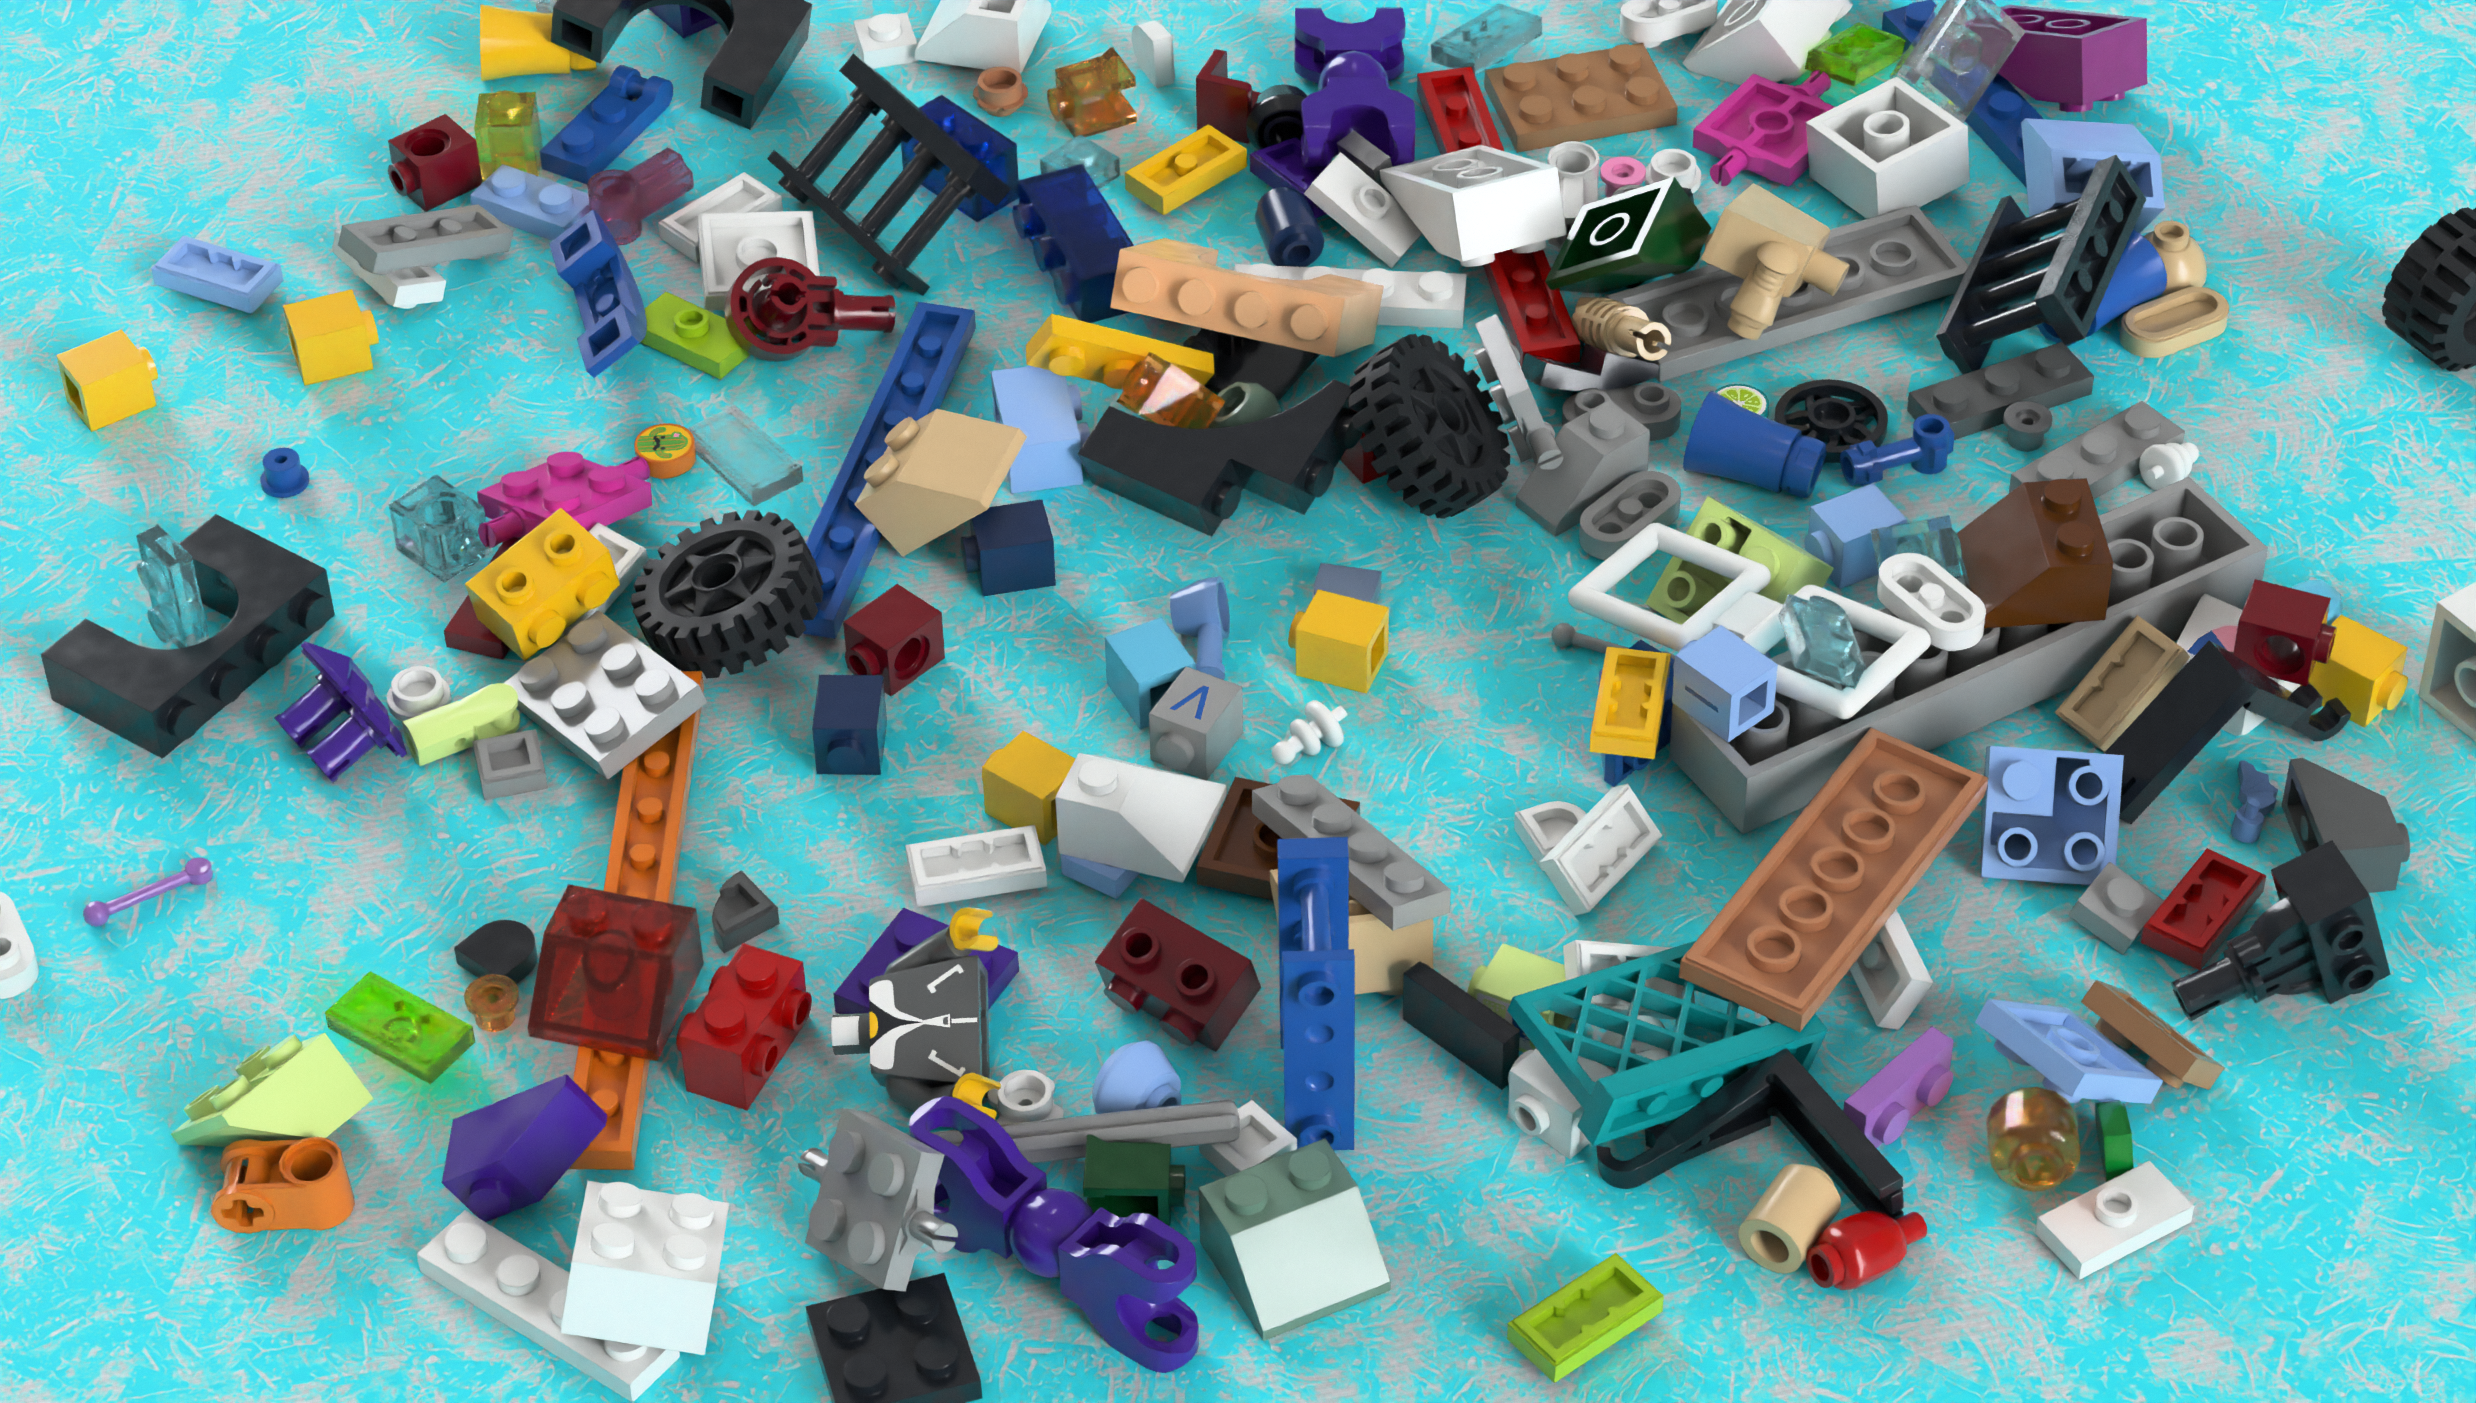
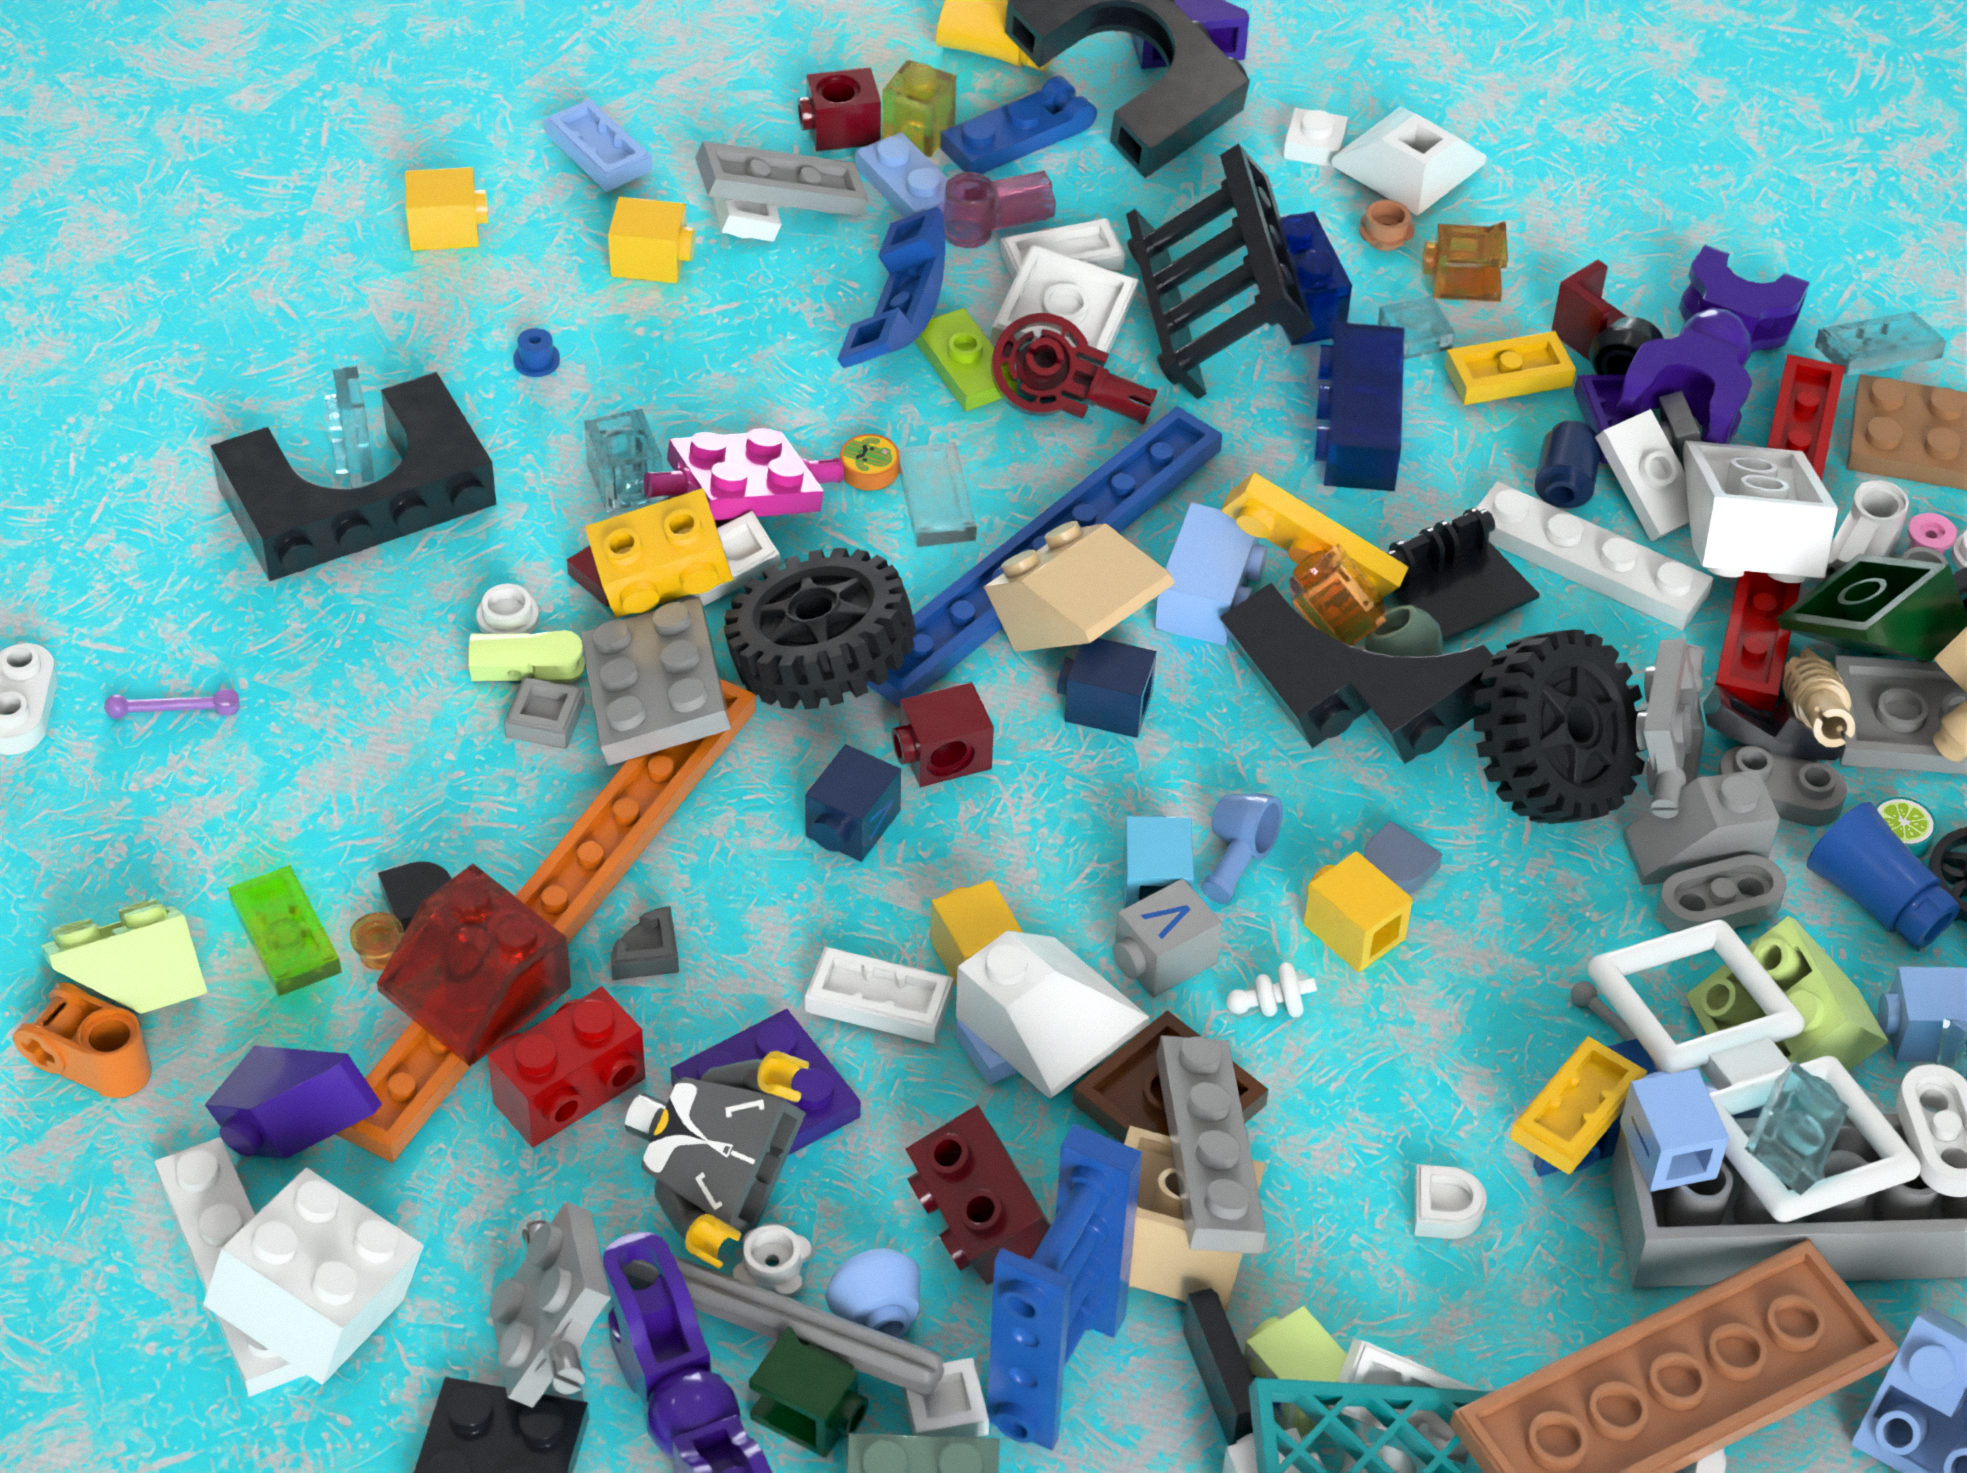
camera: 25 degrees right, 5 degrees up
(339, 689) = (445, 599): dark purple connector -> none
(1154, 52) = (1552, 240): white tile -> none
(1186, 287) = (1419, 489): light nougat arch -> none
(1600, 849) = (1474, 1242): white plate -> none

